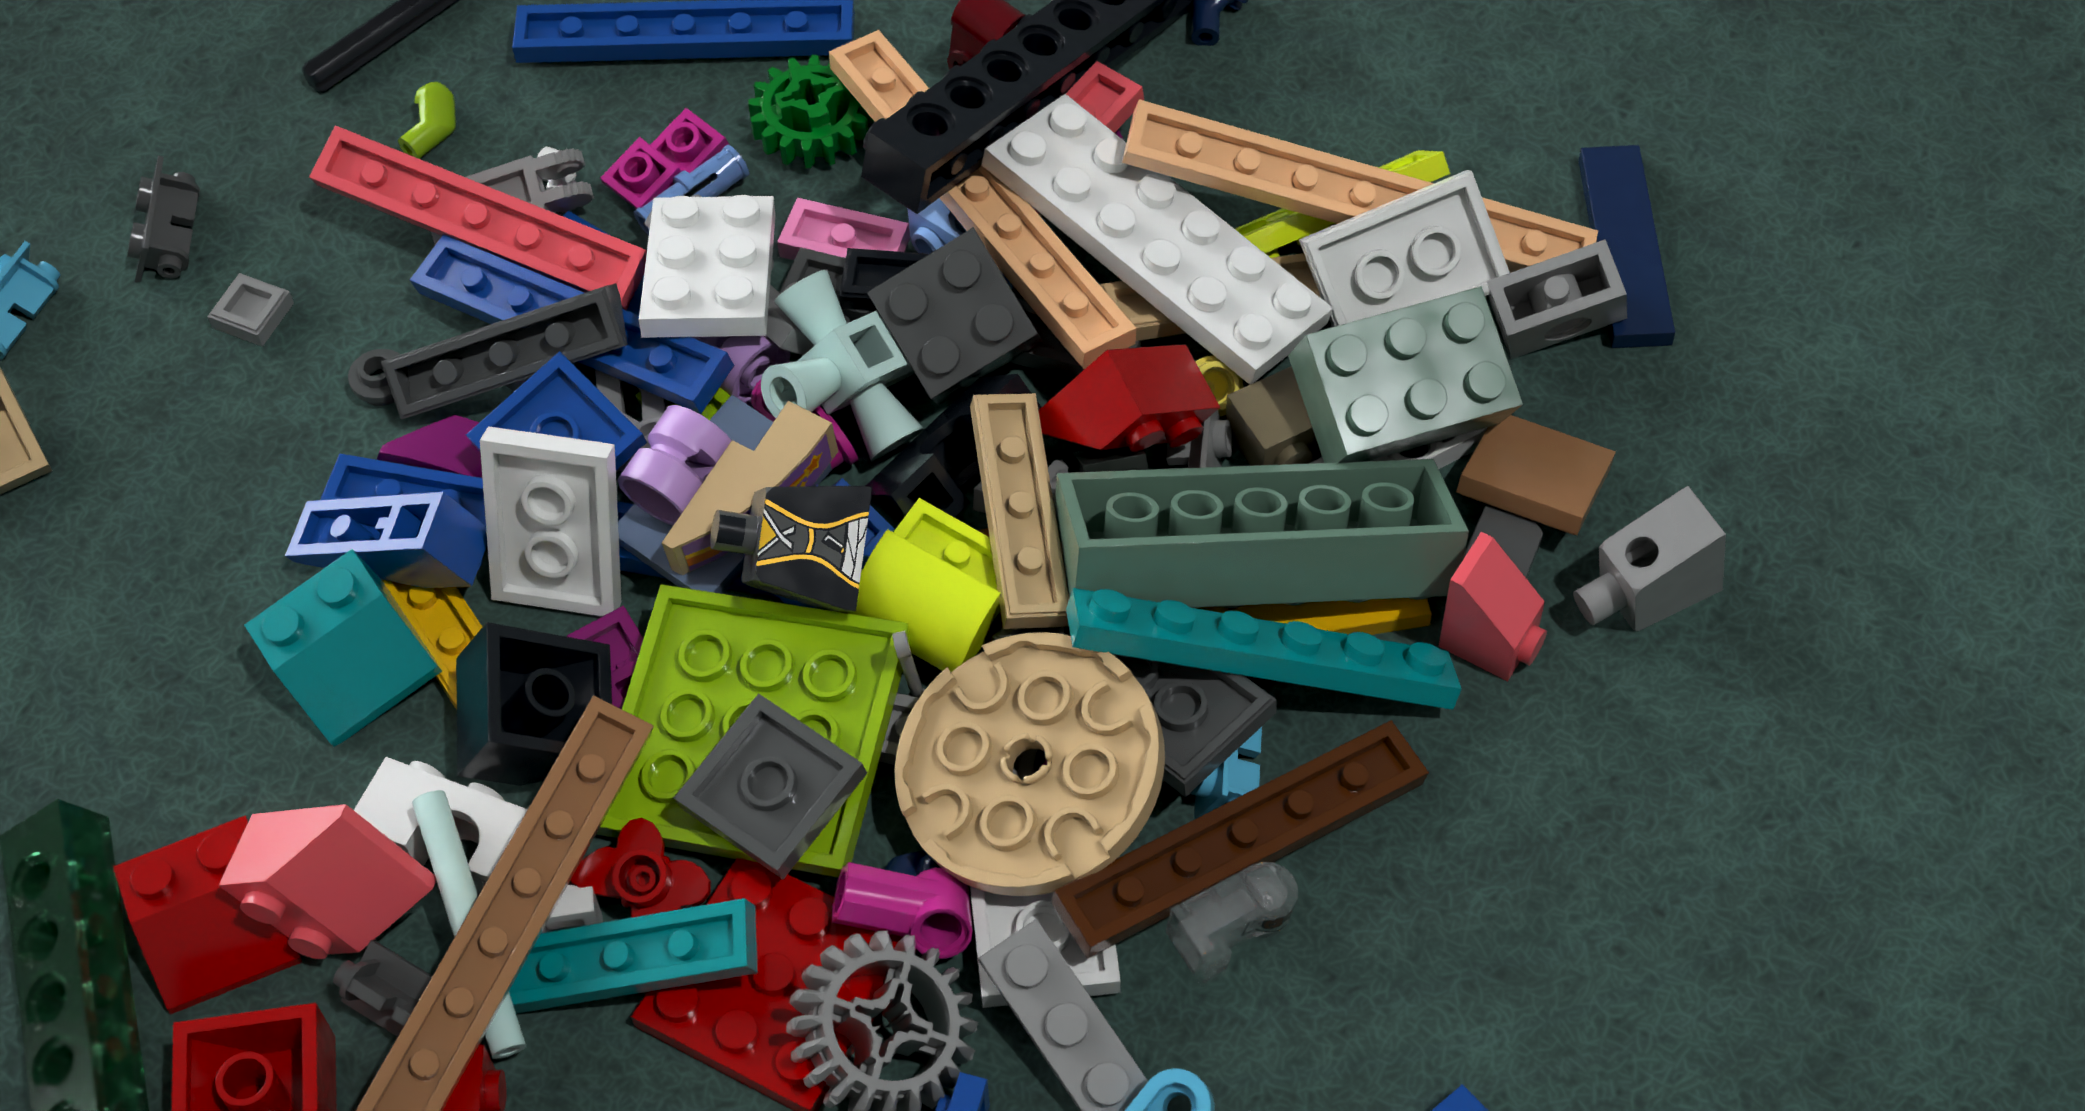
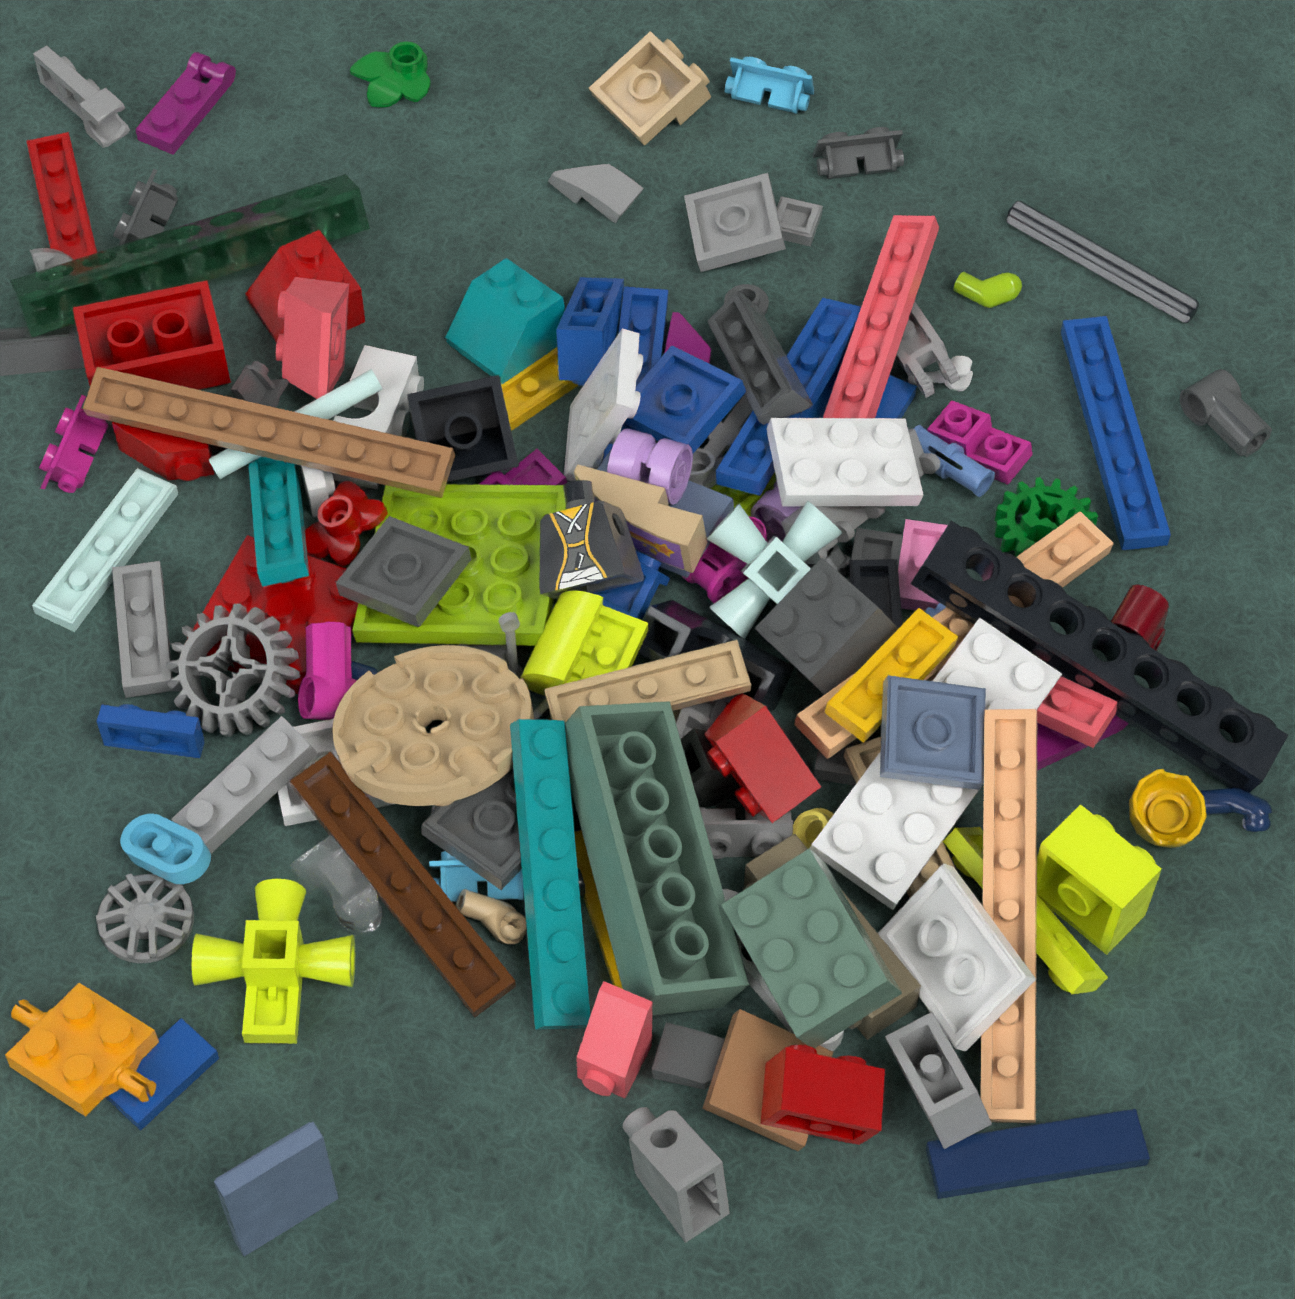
camera: 80 degrees right, 0 degrees up
(120, 520) = (599, 185): none -> light grey slope
(243, 367) = (734, 222): none -> light grey plate
(1051, 244) = (908, 654): none -> yellow plate
(1142, 212) = (932, 732): none -> sand blue tile
(1221, 59) = (1167, 809): none -> yellow hair
(1290, 742) = (496, 915): none -> tan arm
(1327, 104) = (1095, 878): none -> neon yellow brick
(1347, 1000) = (273, 962): none -> neon yellow brick
(1568, 412) = (823, 1095): none -> red brick
(1707, 976) = (277, 1188): none -> sand blue tile

